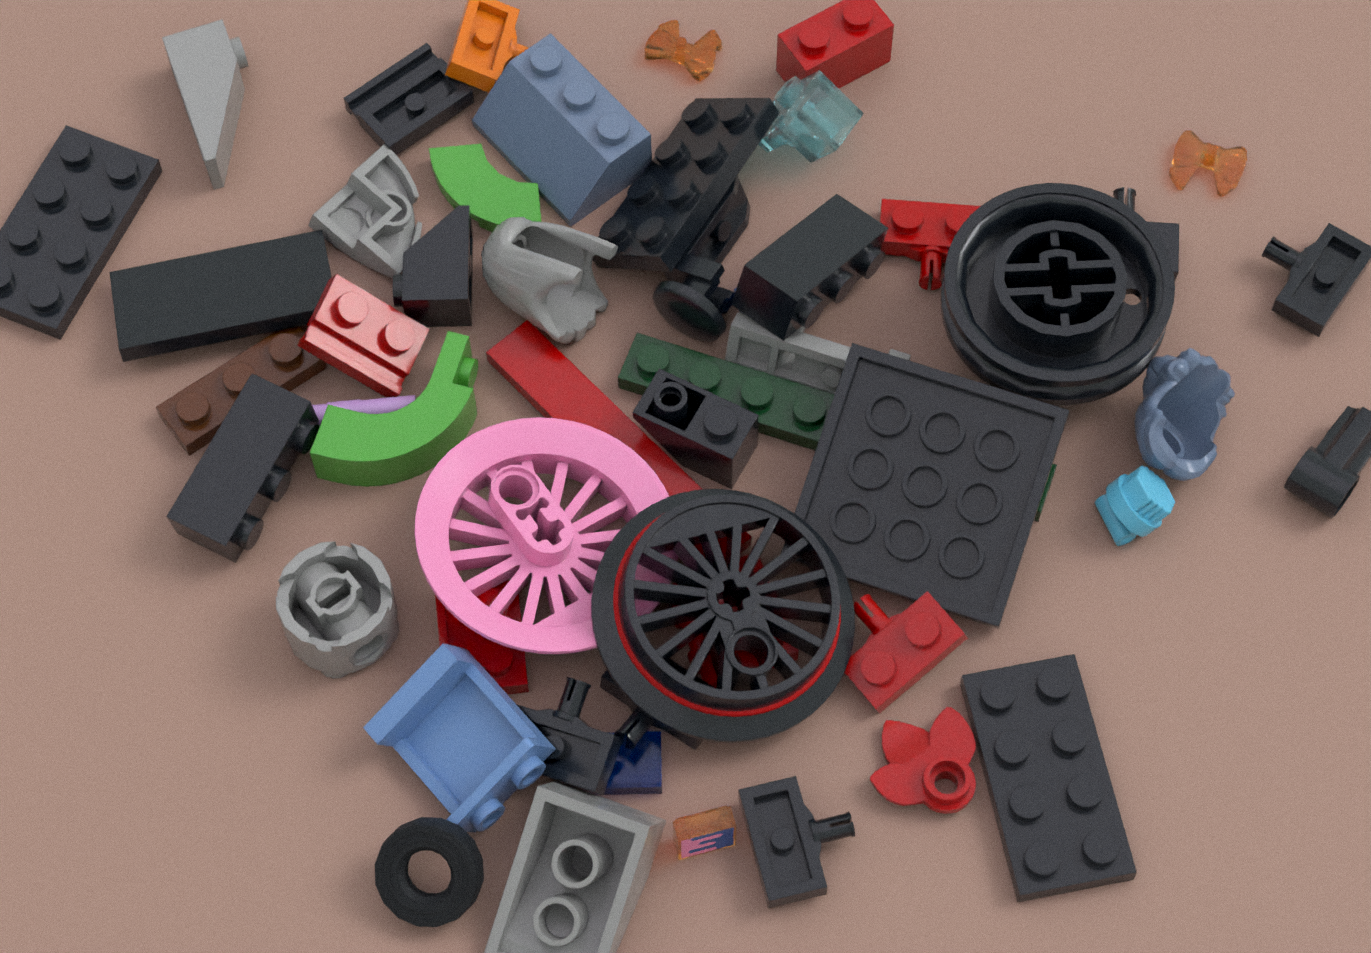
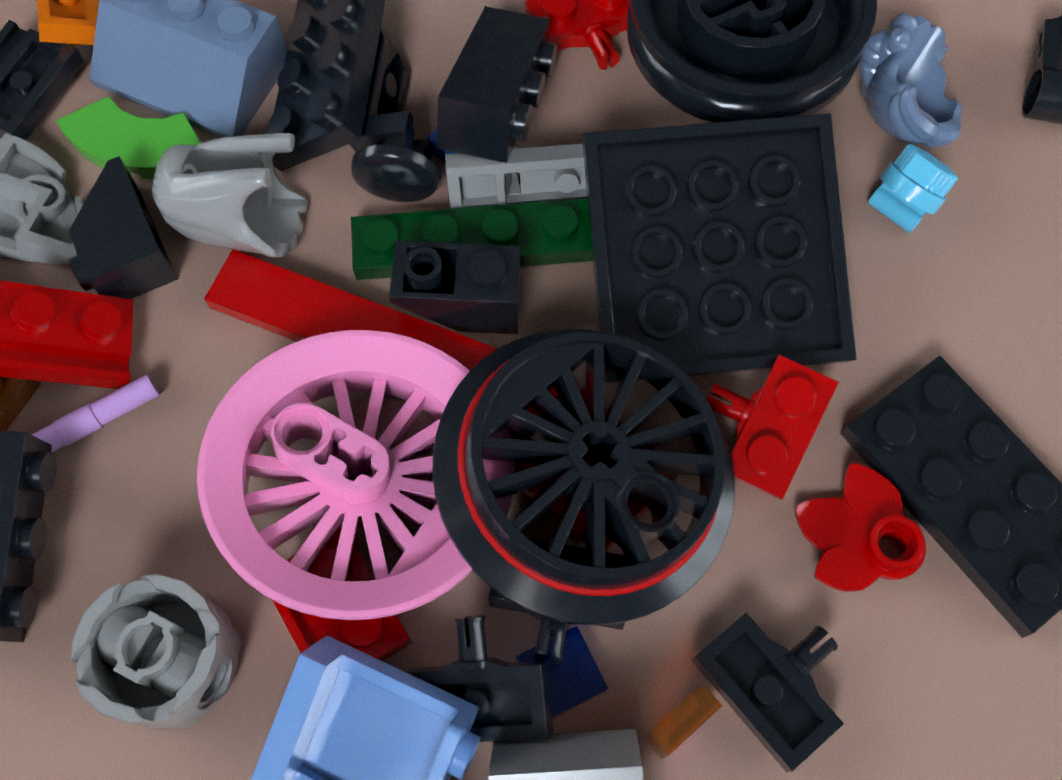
camera: 25 degrees left, 5 degrees up
(406, 442) = (157, 428): bright green arch -> none

